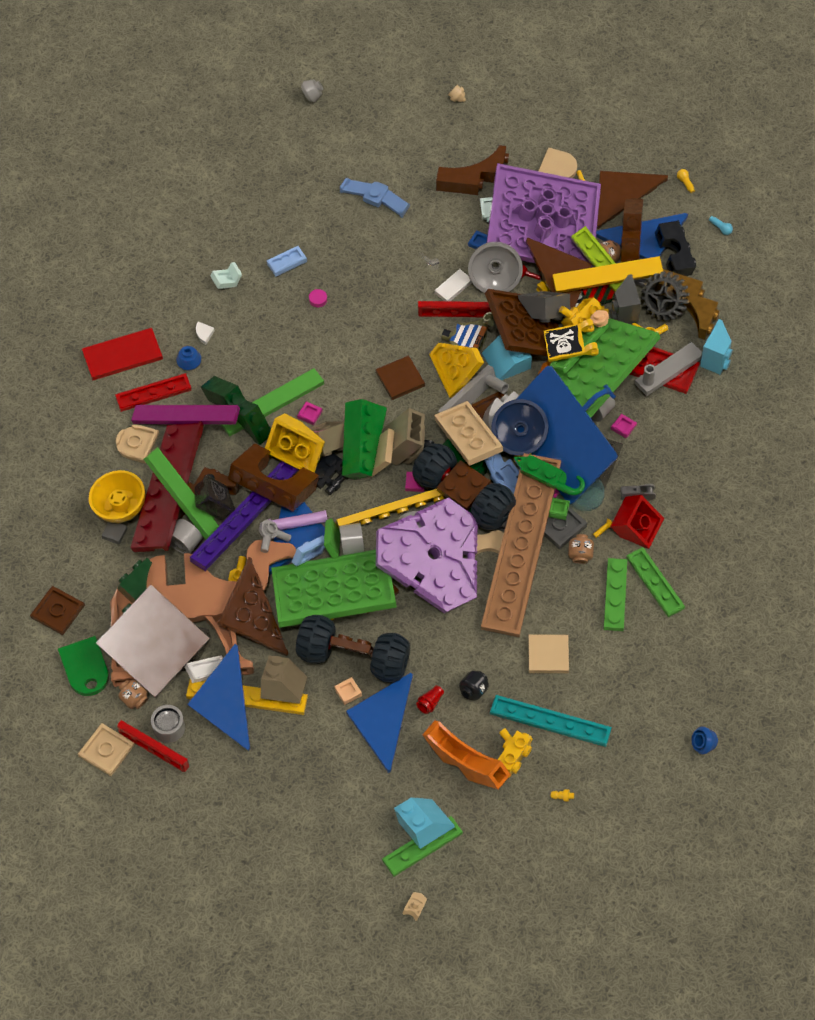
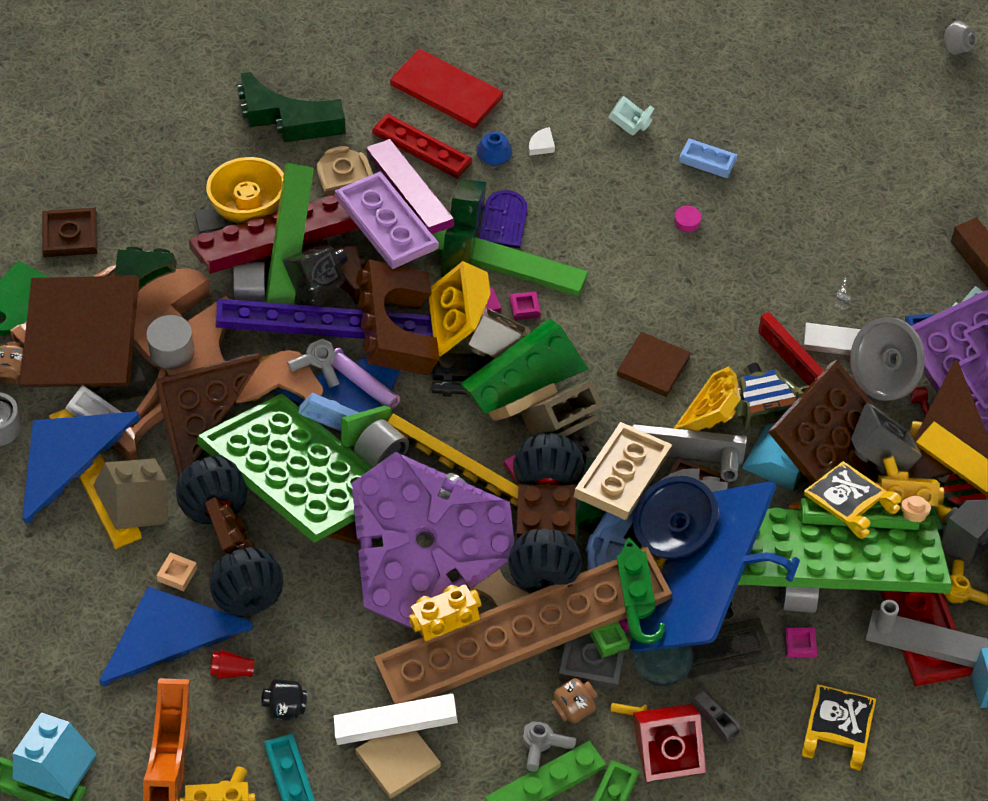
camera: 50 degrees right, 5 degrees down
(78, 443) = (292, 117): none -> dark green arch
(199, 599) = (170, 342): none -> light grey piece
(207, 438) = (386, 220): none -> lavender tile
(248, 385) = (504, 219): none -> dark purple window
(375, 195) = (883, 185): medium blue plate -> none
(486, 573) = (445, 612): none -> yellow brick
(527, 639) = (395, 719): none -> white tile
(589, 580) = (540, 737): none -> light grey piece
(682, 438) = (841, 720): none -> flag

